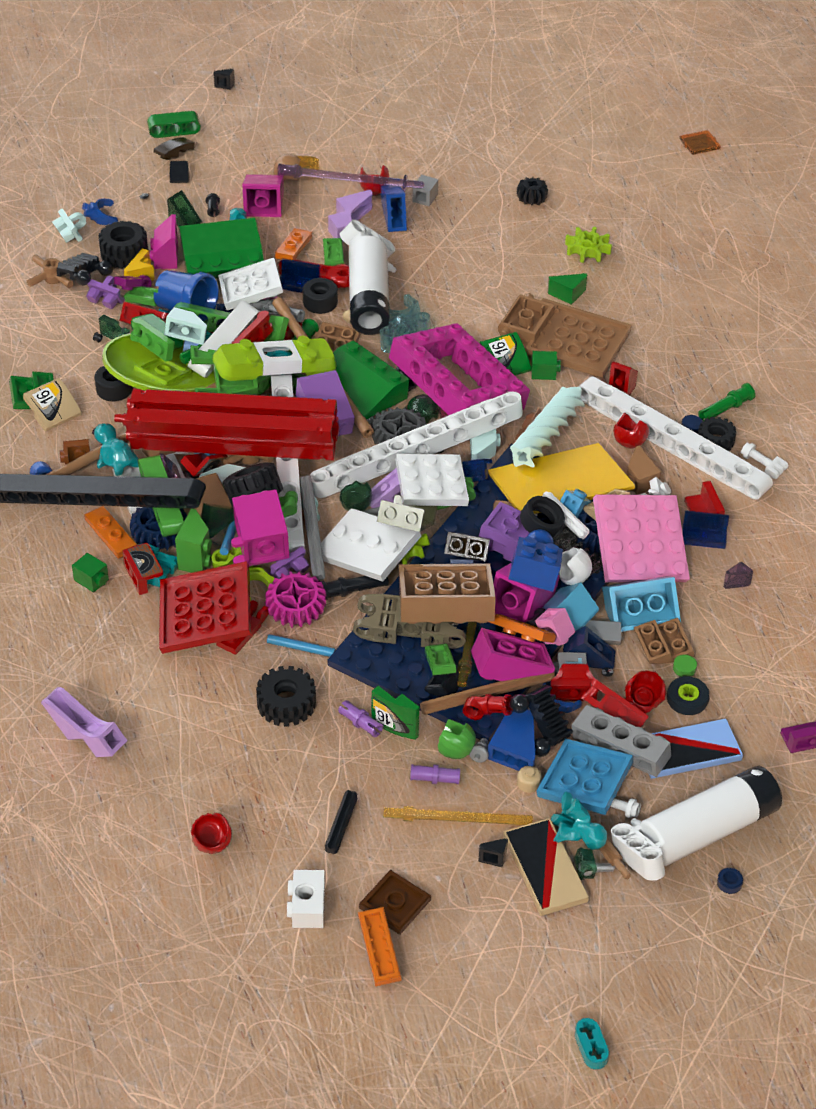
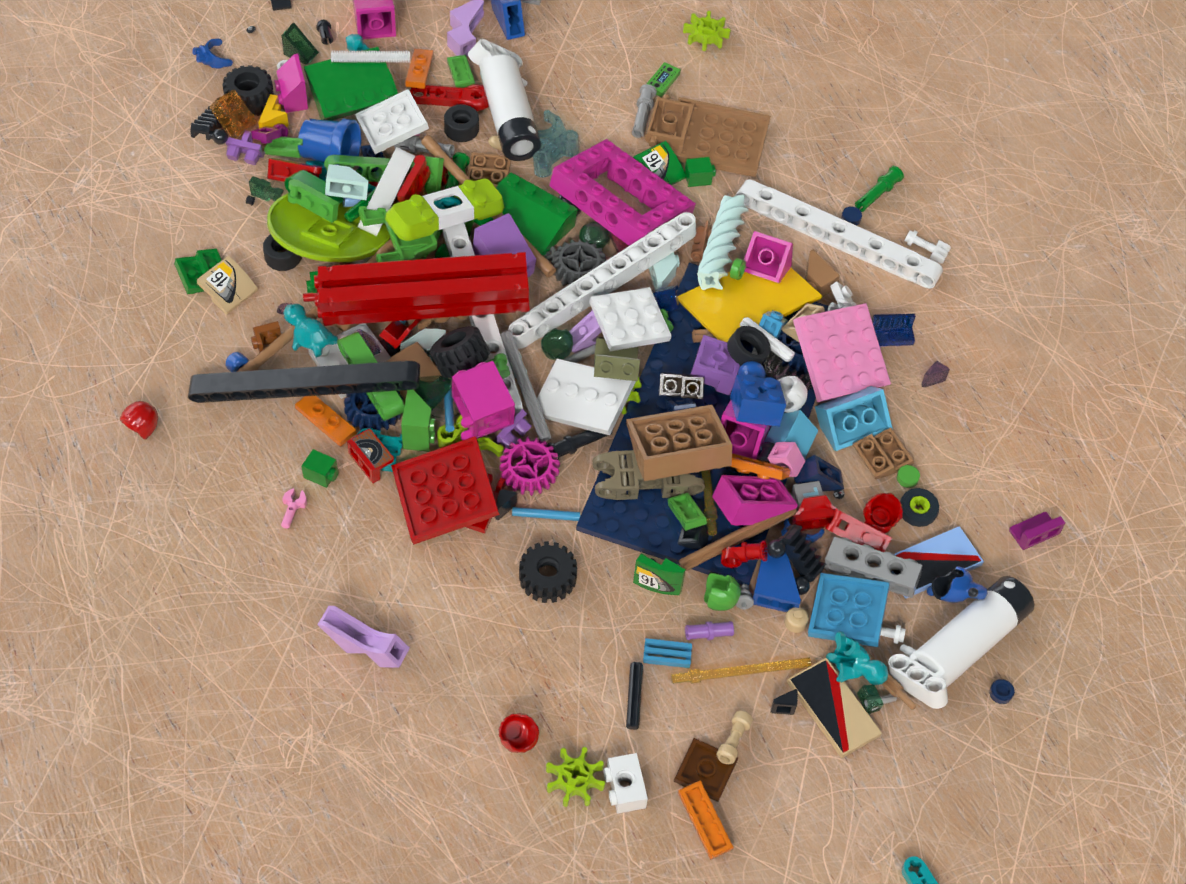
camera: 15 degrees left, 10 degrees up
(48, 272) = (181, 131): medium nougat bar -> none
(53, 596) = (292, 506): none -> bright pink bar
(67, 228) = (189, 81): light aqua hips -> none
(100, 259) = (233, 114): none -> clear orange brick
(244, 225) = (370, 56): none -> white axle
(257, 884) = (566, 772): none -> lime gear
(261, 628) = (505, 502): none -> black slope
(296, 274) = (434, 102): clear blue panel -> none
(360, 718) = (624, 583): medium lavender pin -> none
(387, 785) = (667, 649): none -> dark azure tile
(419, 886) = (741, 722): none -> tan piece
(506, 301) = (644, 104): none -> light grey pin
(532, 282) = (664, 78): none -> bright green tile
(555, 451) = (738, 269): none -> bright green tile
(567, 287) = (698, 81): green slope -> none
(589, 444) = (768, 257): none -> dark pink slope
(607, 631) = (830, 452): light grey slope -> none
(623, 377) = (778, 177): red slope -> none
(629, 433) = (800, 235): red hair -> none
(702, 769) = (956, 587): none -> piece
(706, 501) = (886, 300): red panel -> none
(718, 427) = (882, 217): black tyre -> none

